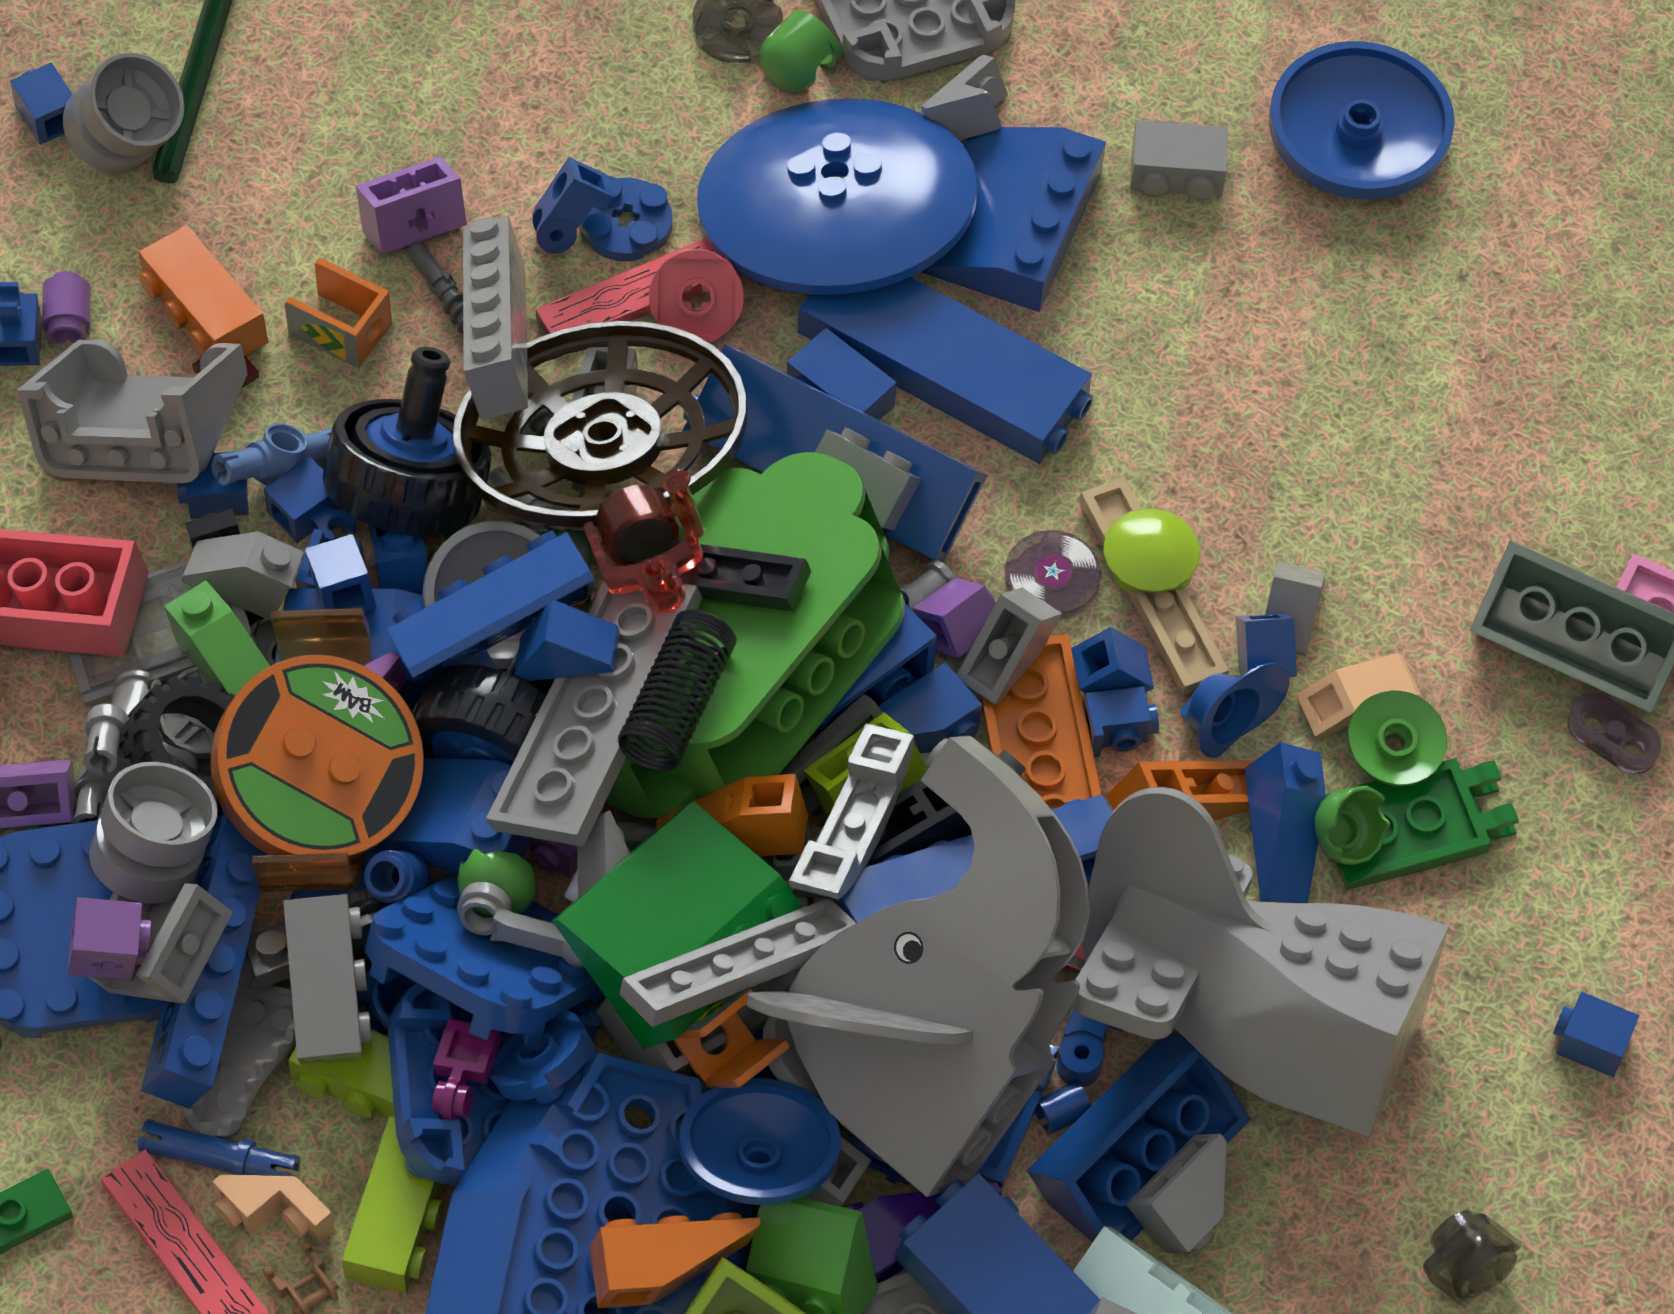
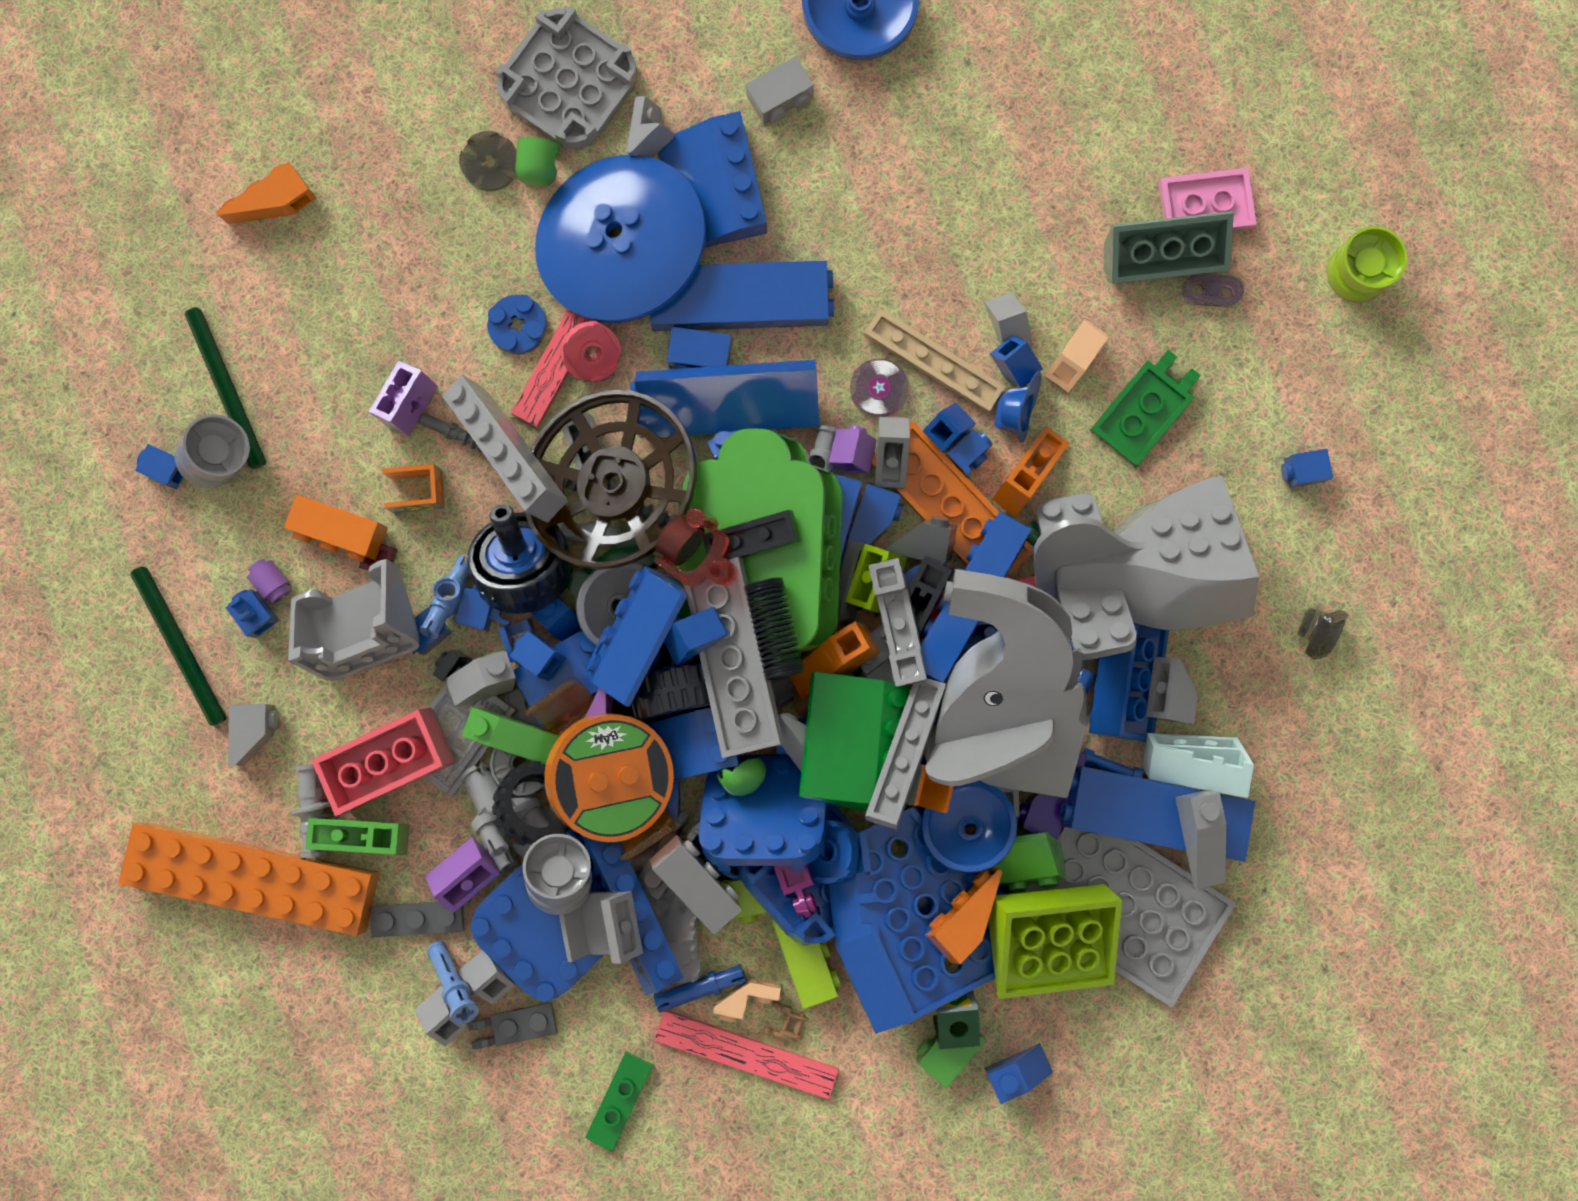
camera: 25 degrees left, 25 degrees up
(107, 939) = (582, 952): medium lavender brick -> none
(383, 870) = (687, 800): blue brick -> none
(508, 925) = (754, 797): light grey piece -> none
(567, 204) = (486, 341): blue leg -> none
(884, 479) = (759, 410): light grey brick -> none
(1151, 551) = (924, 345): lime dish -> none
(1283, 801) = (1088, 453): blue slope -> none
(1351, 824) = (1125, 439): bright green hair -> none
(1410, 722) = (1128, 369): bright green dish -> none

